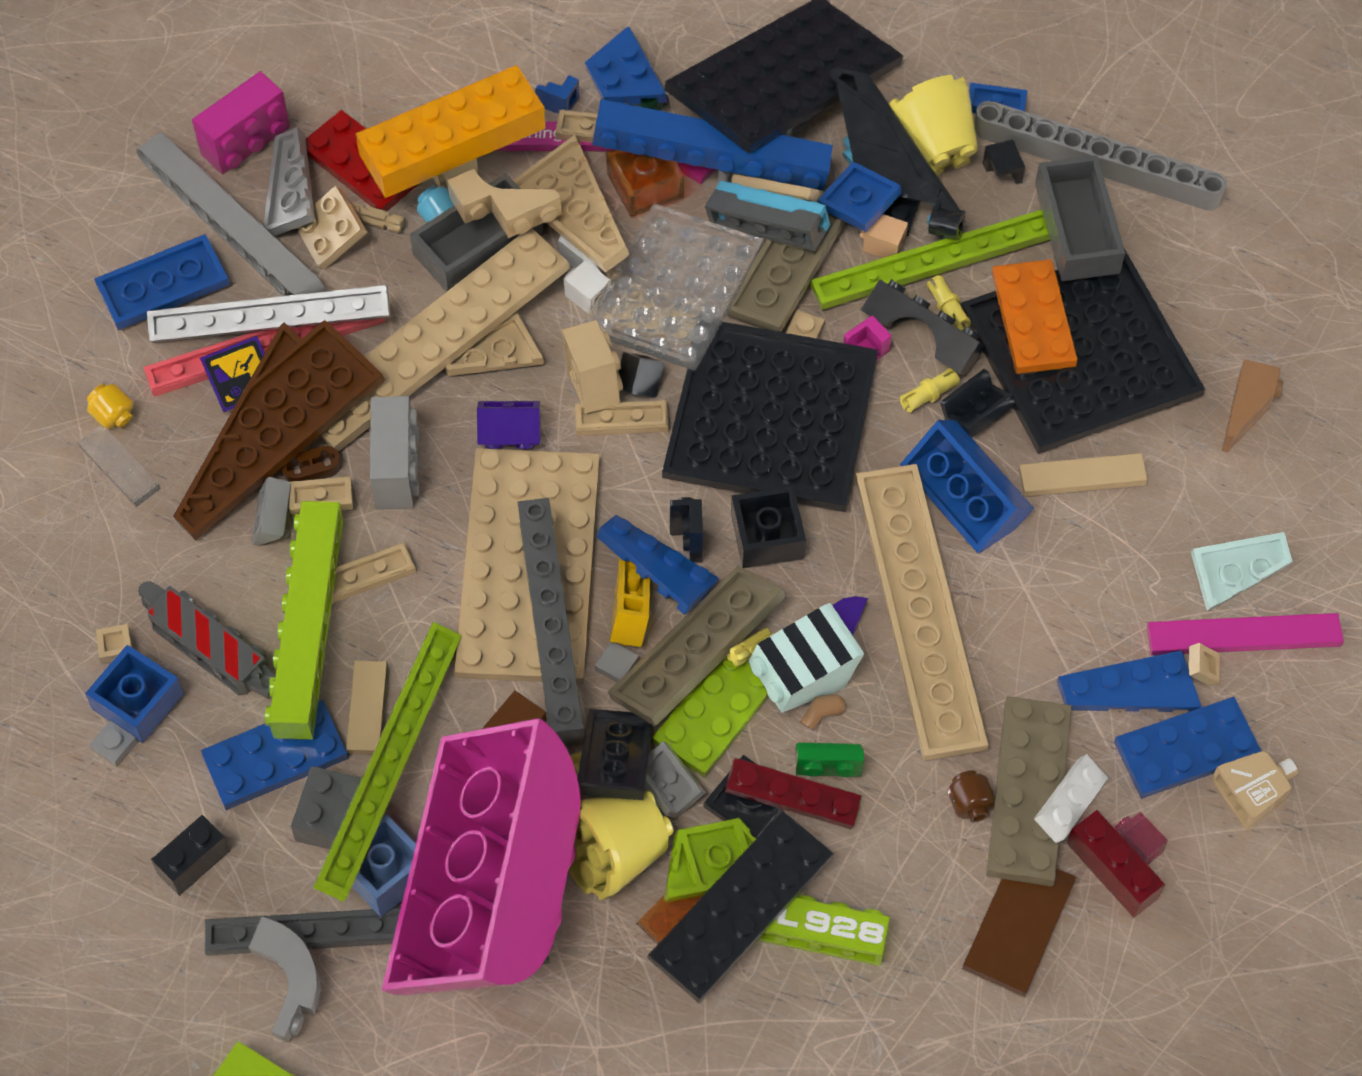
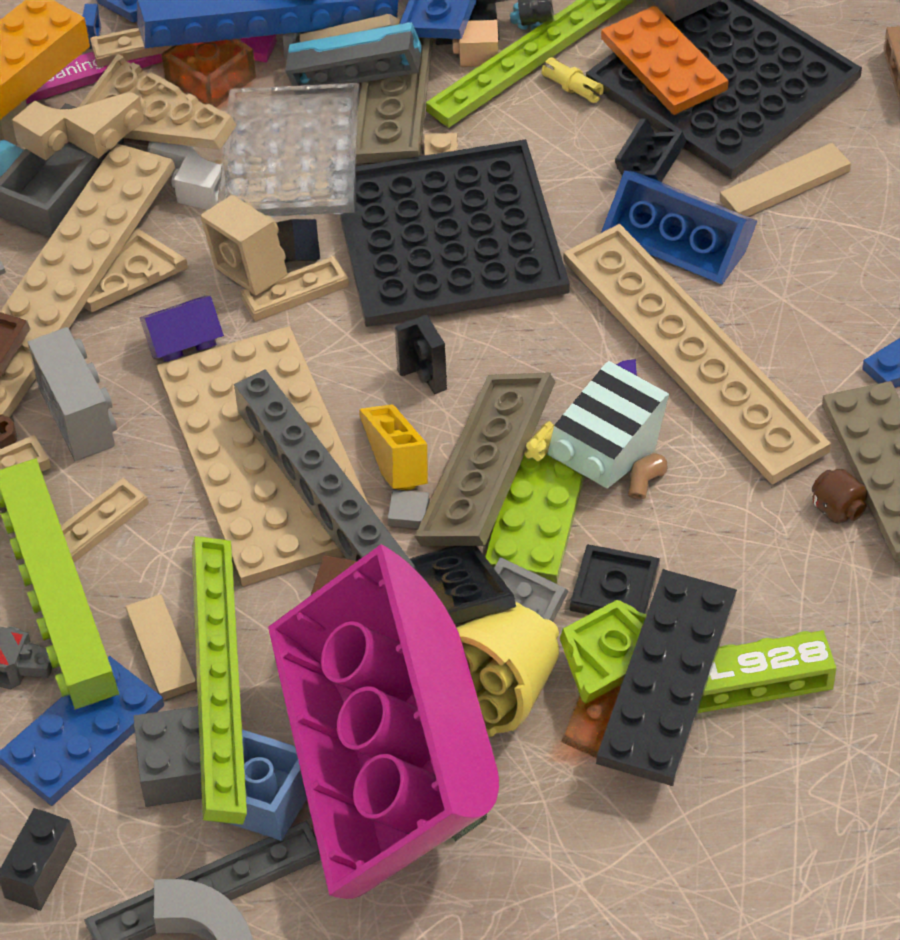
camera: 20 degrees left, 10 degrees down
(654, 560) = (397, 400): blue wing -> none
(768, 526) = (502, 327): black brick -> none
(793, 793) = (648, 558): dark red plate -> none
(829, 759) = (679, 514): green bracket -> none
(870, 335) = (512, 127): dark pink panel -> none
(929, 390) = (595, 158): light yellow pin -> none
(953, 346) = (520, 96): black arch -> none

